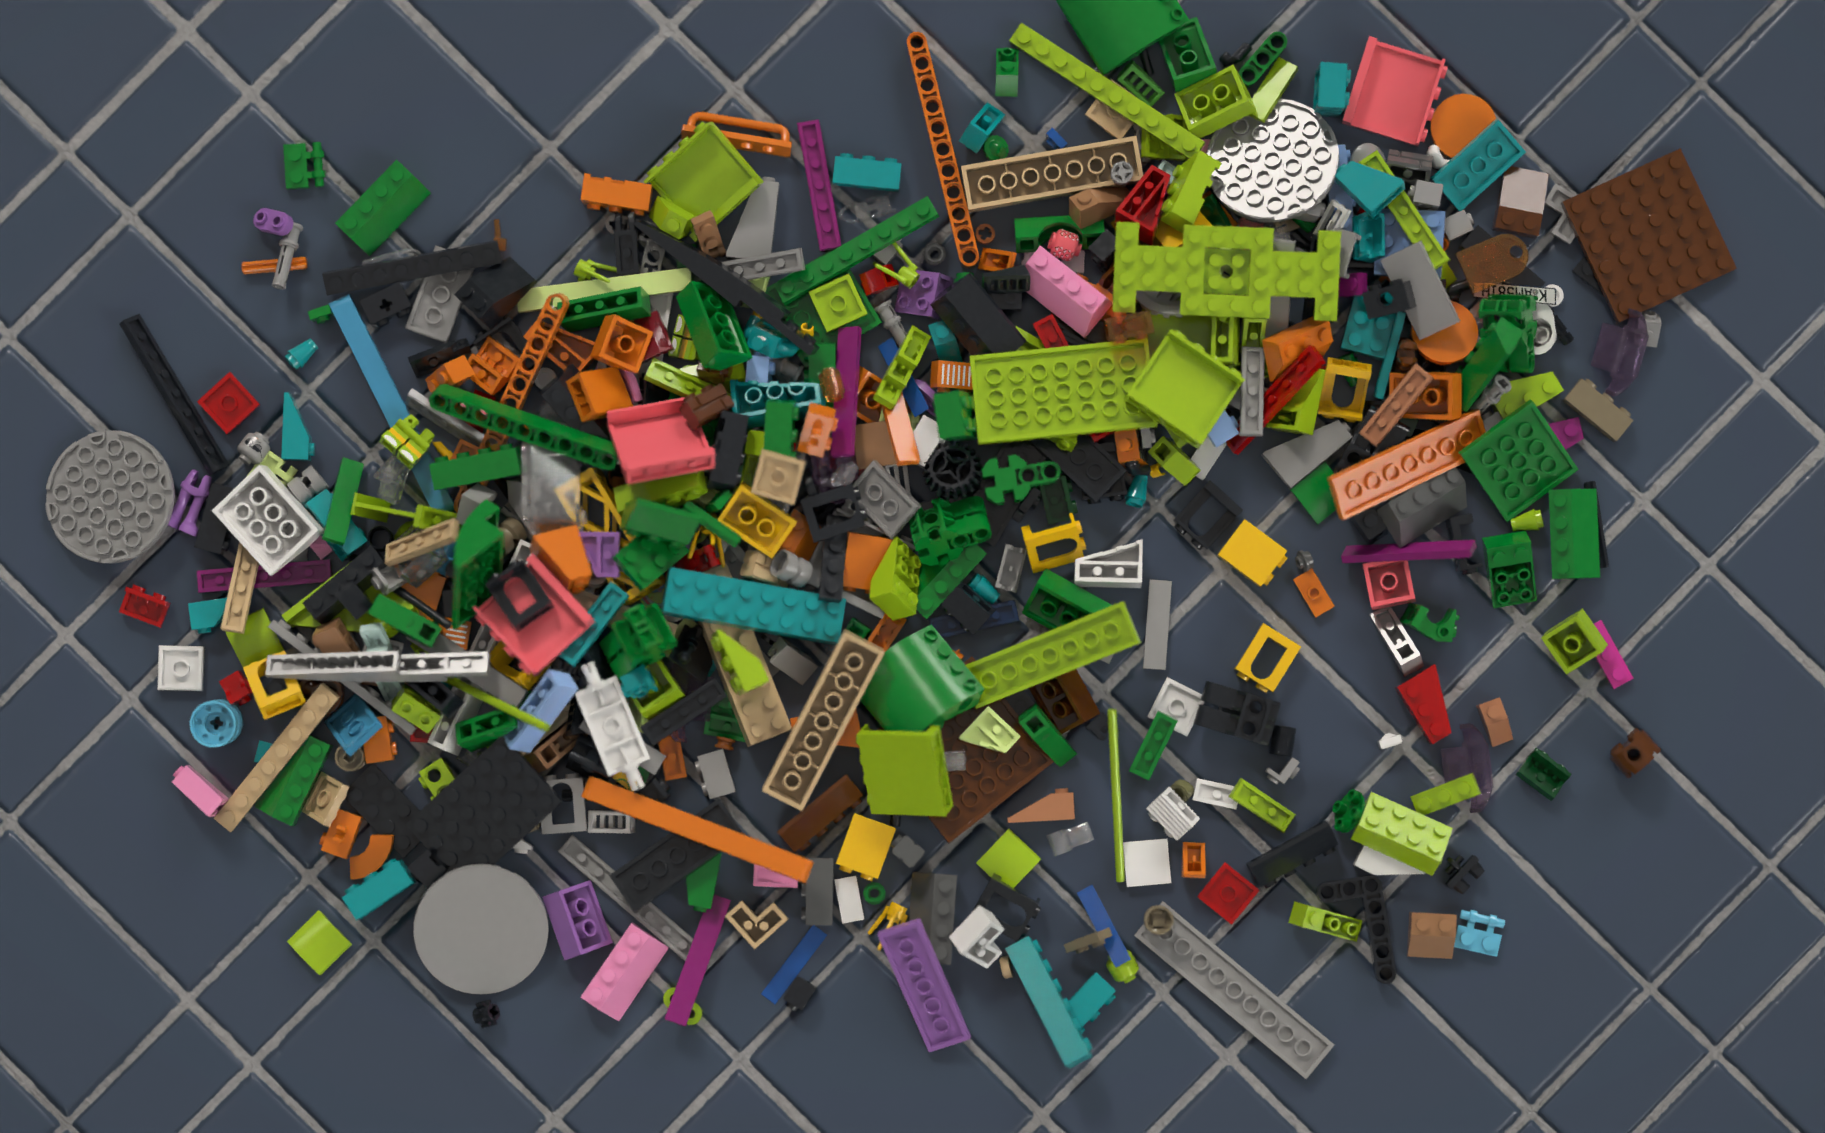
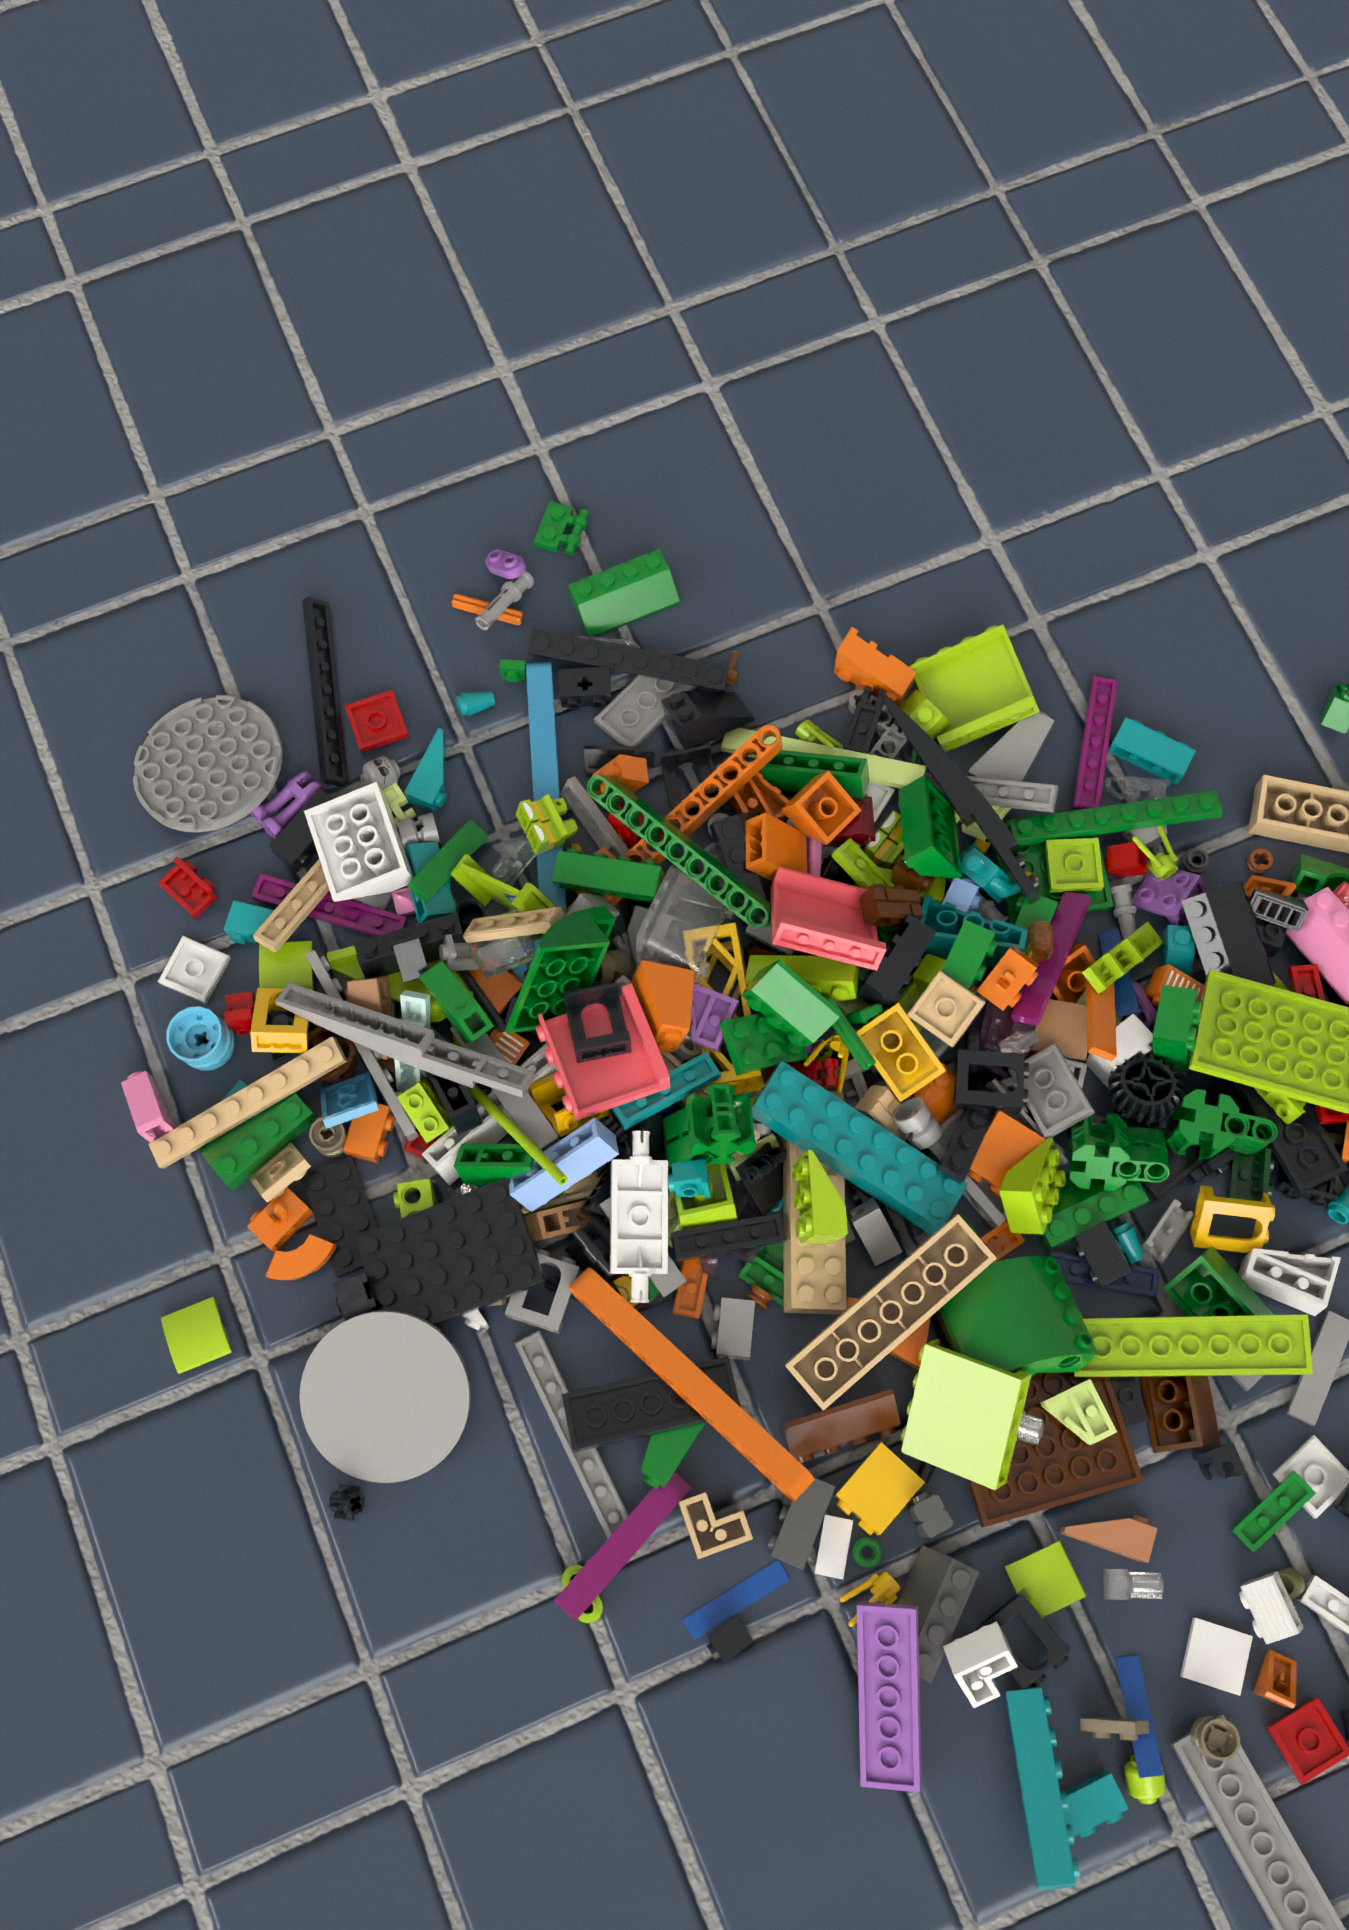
camera: 20 degrees right, 15 degrees down
(378, 888) = (289, 1298): teal brick -> none
(492, 365) = (669, 785): orange slope -> none
(577, 920) = (502, 1434): medium lavender slope -> none
(625, 972) = (530, 1521): bright pink slope -> none
(630, 822) = (611, 1345): white slope -> none
(656, 790) = (660, 1317): black bracket -> none
(708, 234) = (959, 737): medium nougat plate -> none
(743, 141) = (1048, 671): orange piece -> none
(768, 878) = (750, 1479): bright pink plate -> none
(942, 139) = (1249, 749): orange beam -> none
(981, 127) = (1293, 752): teal slope -> none
(995, 148) = (1301, 773): green hat -> none
(1006, 967) = (997, 1716): tan tile -> none
(1046, 735) = (1147, 1444): green slope -> none
(1116, 795) = (1212, 1554): lime piece -> none

